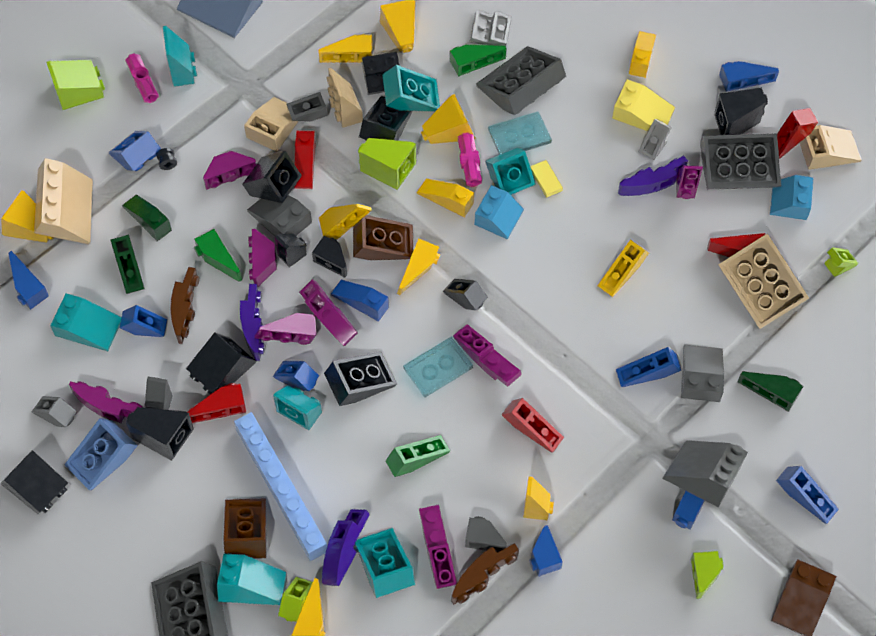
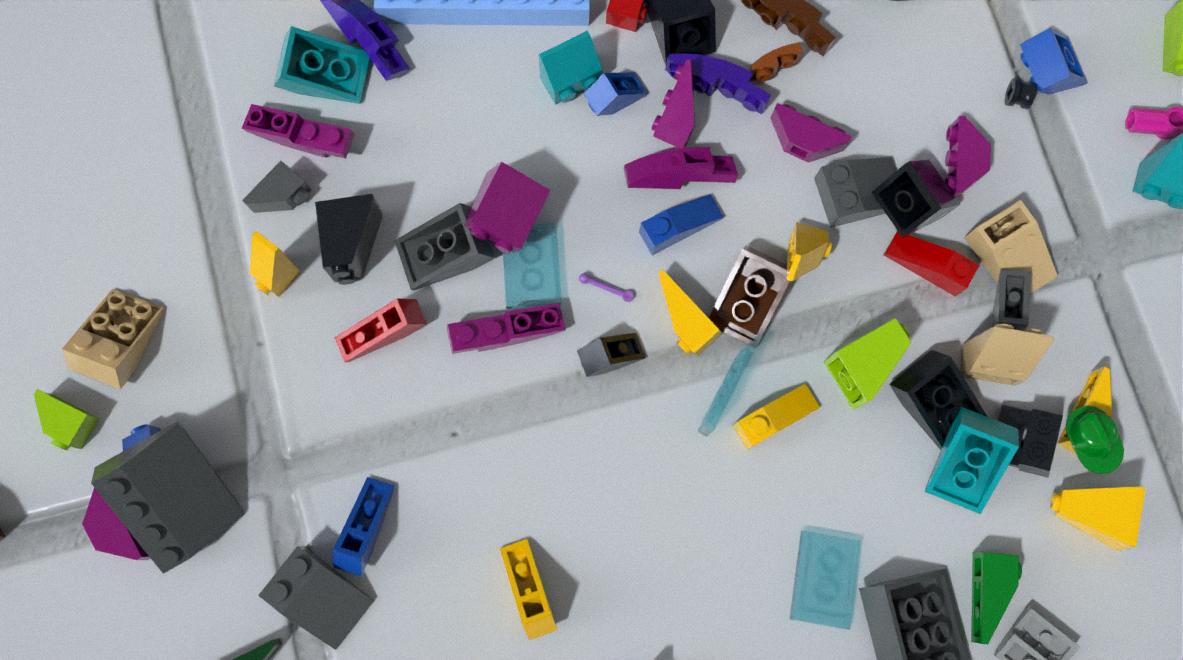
camera: 115 degrees right, 15 degrees up
(148, 217) = (940, 33): dark green slope -> none
(215, 254) = (844, 85): green slope -> none
(223, 299) = (783, 57): none -> dark orange slope
(290, 248) = (799, 170): black slope -> none
(330, 255) = (762, 218): black slope -> none
(359, 377) = (569, 163): black slope -> none
(363, 41) = (1095, 439): none -> green piece
(416, 455) = (426, 174): green slope -> none
(417, 385) = (506, 208): none -> magenta slope
(427, 334) = (627, 295): none -> medium lavender hinge
(446, 123) = (891, 485): yellow slope -> none
(452, 221) = (725, 392): none -> clear light blue tile
(459, 418) = (442, 249): none -> dark grey slope
(469, 160) = (817, 481): dark pink piece -> none
(476, 575) = (240, 161): reddish brown slope -> none
(489, 470) = (347, 235): none -> black slope
(498, 212) = (709, 469): dark azure slope -> none
(511, 171) = (766, 525): teal slope -> none
(545, 555) = (210, 246): blue slope -> none
(546, 178) = (732, 572): light yellow tile -> none
(638, 576) = (113, 339): none -> tan slope
(742, 502) = (108, 532): none -> magenta slope
(806, 492) = (70, 617): blue slope -> none

